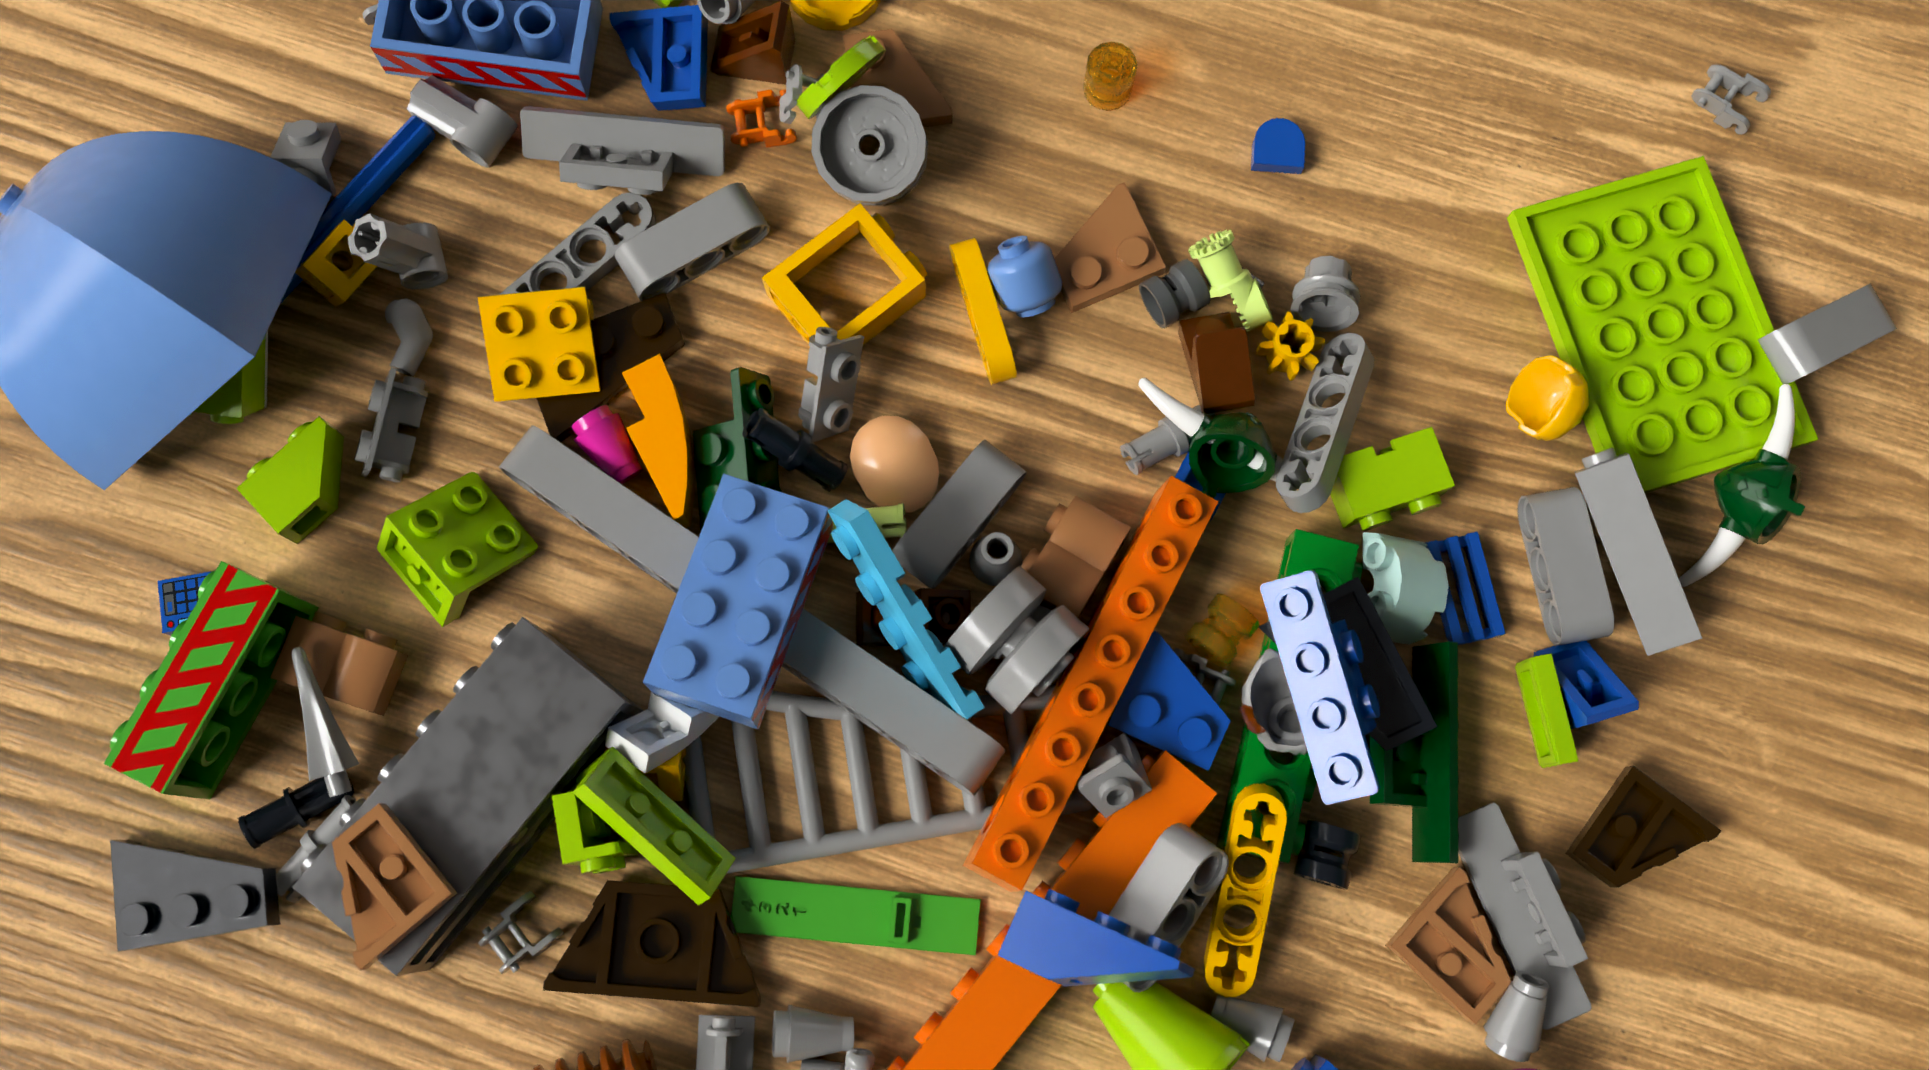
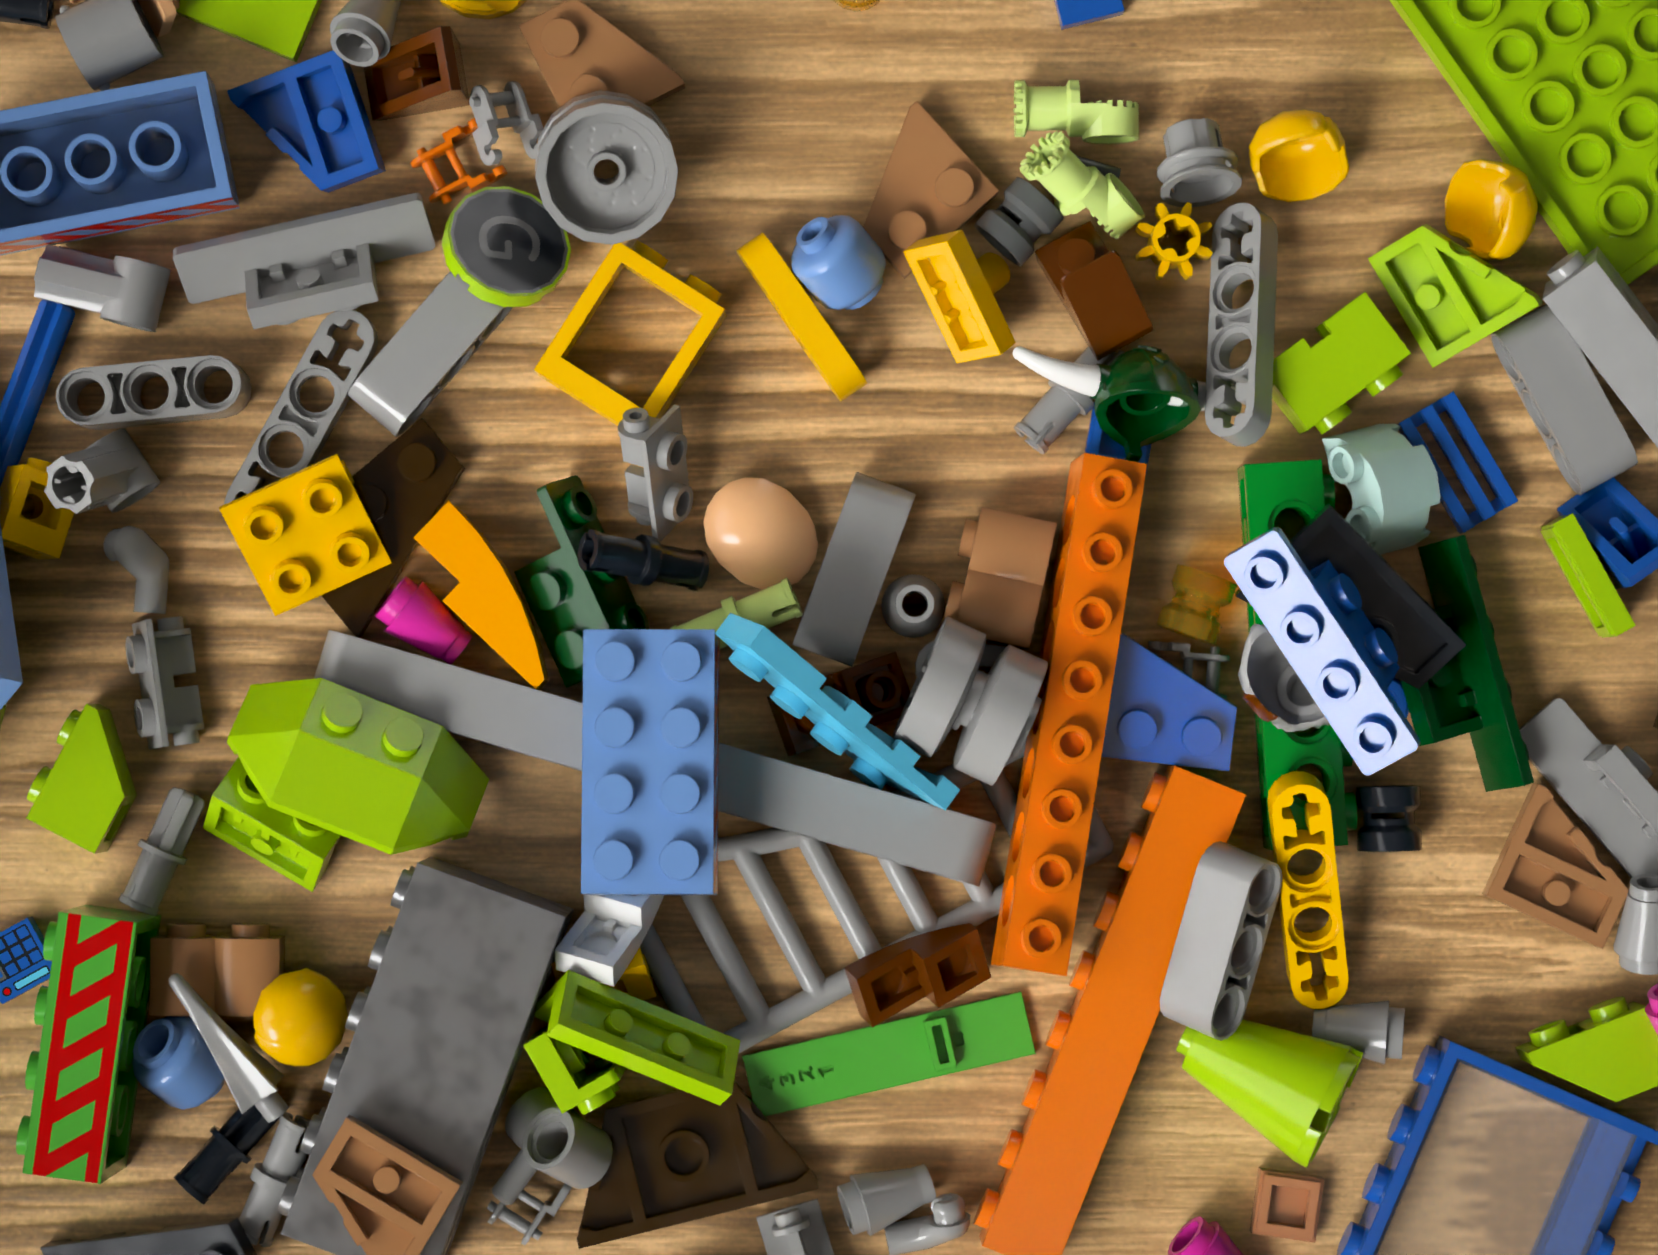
camera: 15 degrees left, 10 degrees up
(274, 724) = (176, 1063): none -> medium blue head
(336, 555) = (163, 851): none -> light grey axle
(385, 718) = (300, 1018): none -> yellow hair
(452, 192) = (123, 392): none -> light grey beam
(512, 534) = (356, 765): none -> lime wedge
(553, 893) = (552, 1143): none -> light grey piece
(774, 184) = (505, 246): none -> black tile
(841, 76) = (544, 99): lime tile -> none
(910, 850) = (928, 965): none -> reddish brown slope
(1078, 951) = (1139, 1019): slope -> none
(1113, 330) = (962, 294): none -> yellow tile
(1114, 776) = (1127, 812): light grey bracket -> none
(1257, 238) = (1060, 109): none -> yellowish green connector
(1407, 312) = (1298, 156): none -> yellow hair
(1496, 453) = (1448, 292): none -> lime wing

